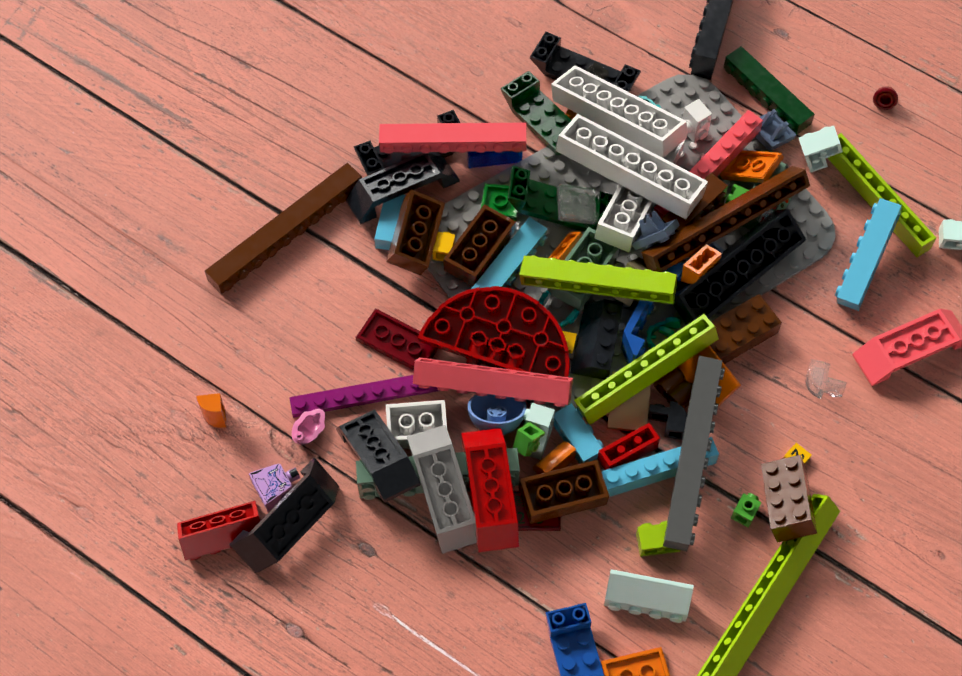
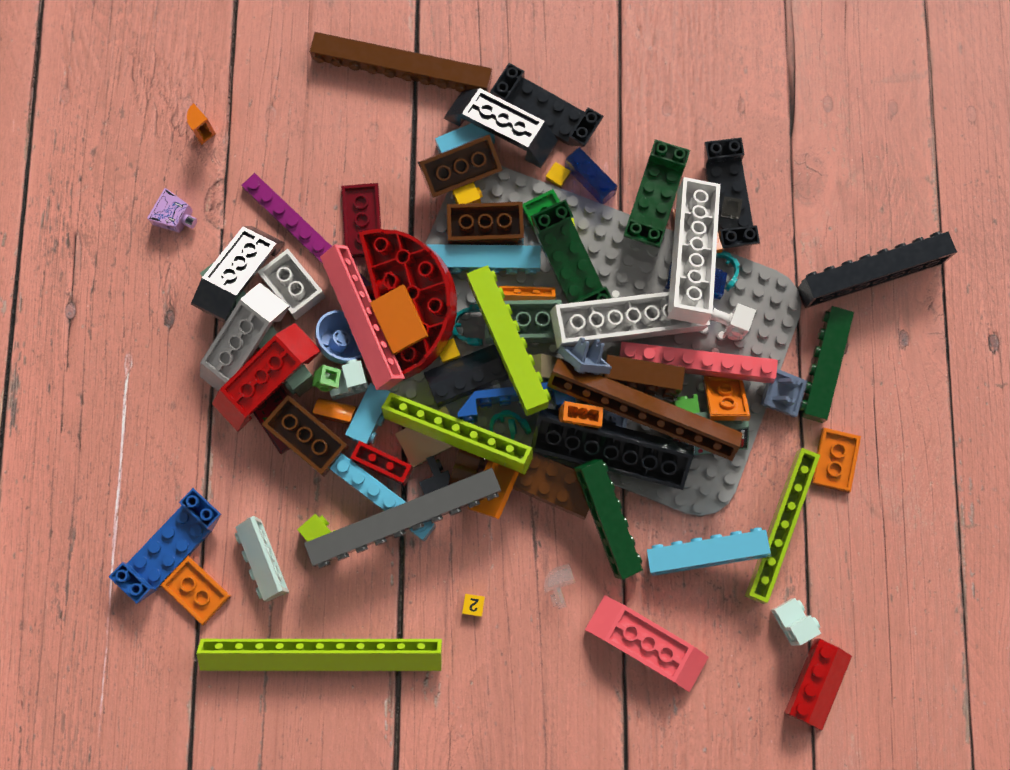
camera: 55 degrees right, 15 degrees up
(215, 530) = (109, 200): red slope -> none
(288, 519) = (150, 244): black slope -> none
(308, 426) = (237, 204): bright pink arm -> none
(452, 137) = (569, 134): coral brick -> none
(472, 175) = (558, 174): none -> yellow tile
(519, 350) = (399, 319): none -> orange tile
(576, 204) = (577, 275): clear plate -> none
(631, 166) = (634, 296): white brick -> none
(746, 515) = (386, 595): bright green brick -> none
(788, 498) = (417, 621): brick -> none
(795, 305) = (609, 519): none -> dark green brick
(819, 146) = (789, 445): light aqua brick -> none
(851, 127) = (837, 460): none -> orange tile
(885, 98) = (897, 472): dark red brick -> none

